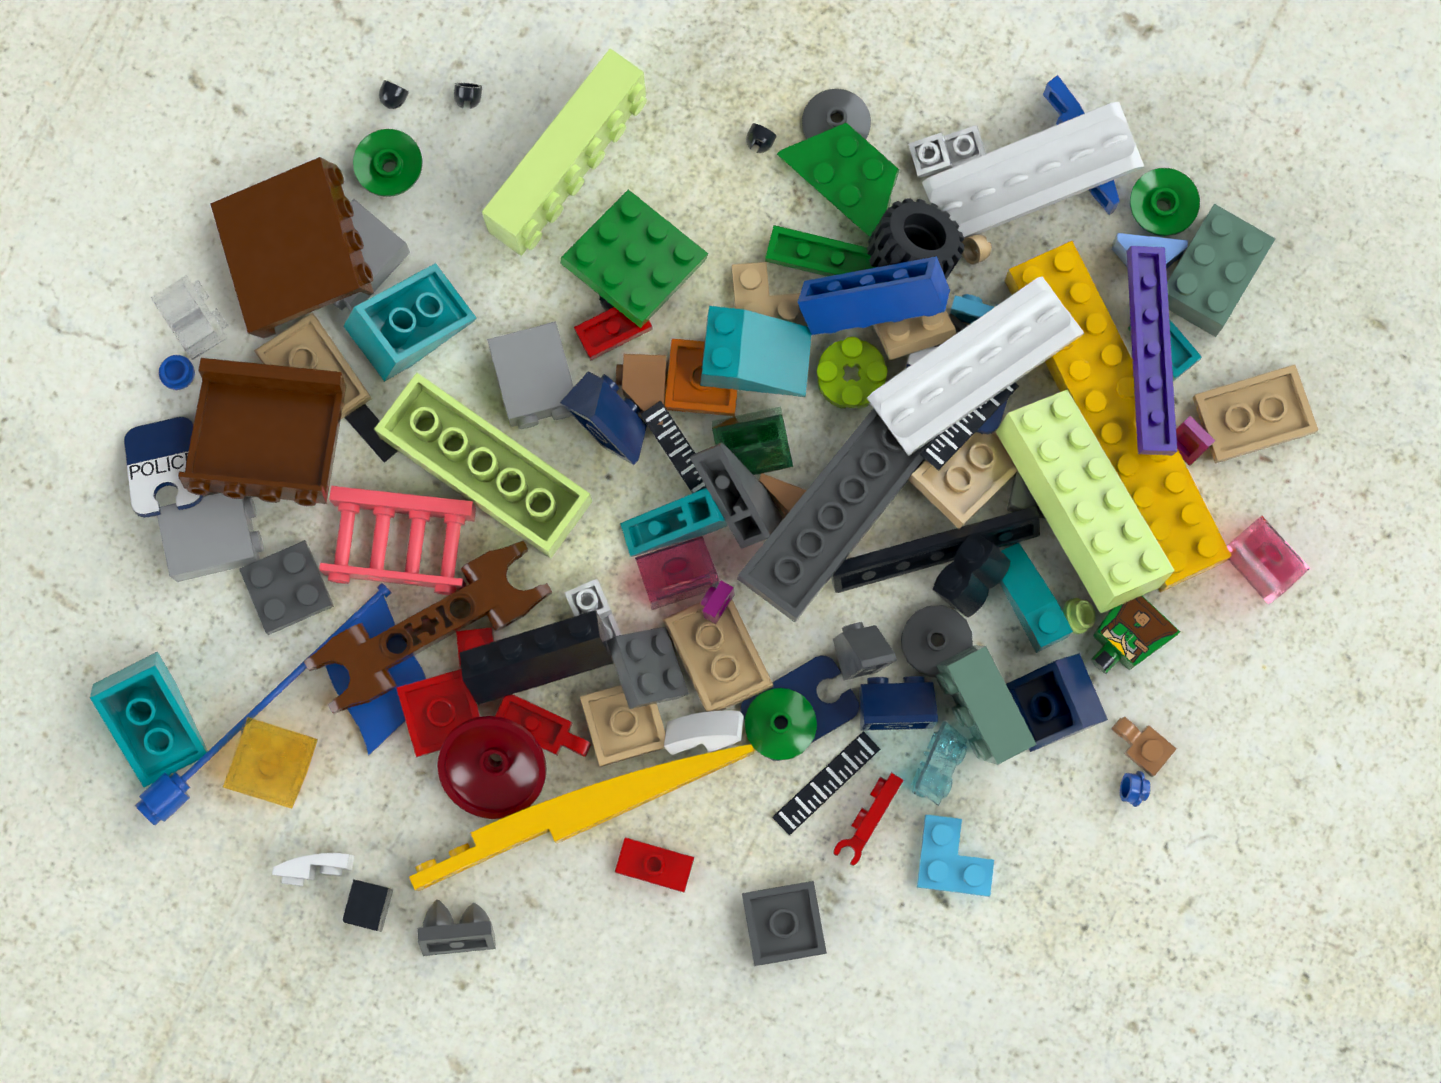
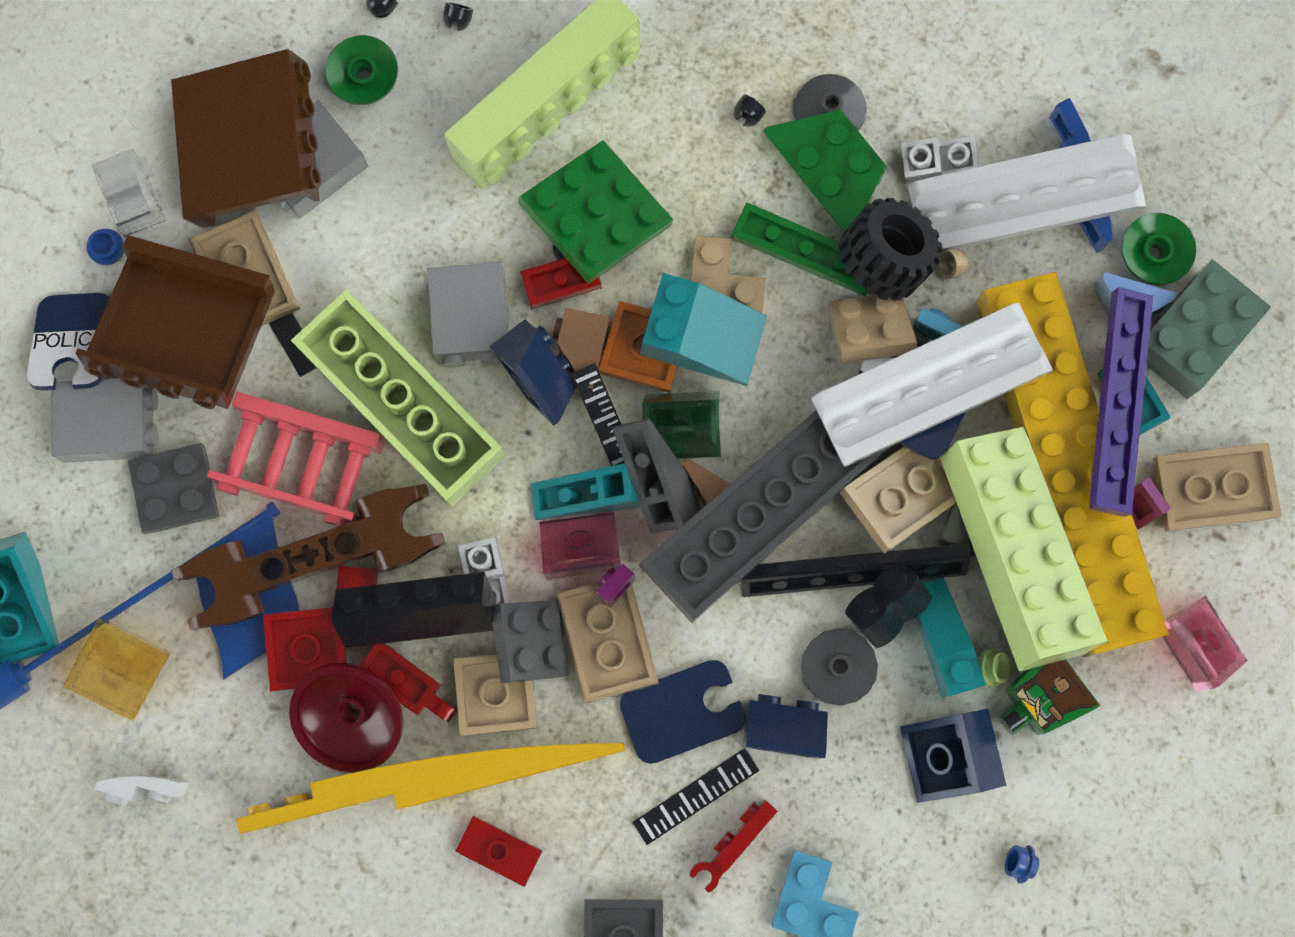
camera: 10 degrees right, 0 degrees up
(367, 905) = (189, 839): black panel -> none
(408, 321) = (351, 235): teal slope -> none
(442, 936) = (261, 887): dark grey tile -> none
(711, 728) = (583, 718): white slope -> none
(780, 743) = (663, 746): green dish -> none
(831, 371) = (802, 349): lime plate -> none
(862, 651) = (758, 664): dark grey slope -> none
(874, 296) = (838, 293): blue brick -> none
(946, 752) = (829, 788): clear light blue hinge -> none
(953, 438) = (891, 459): black sticker -> none
(984, 705) = (878, 748): sand green brick -> none
(1146, 748) = (1041, 820): medium nougat plate -> none

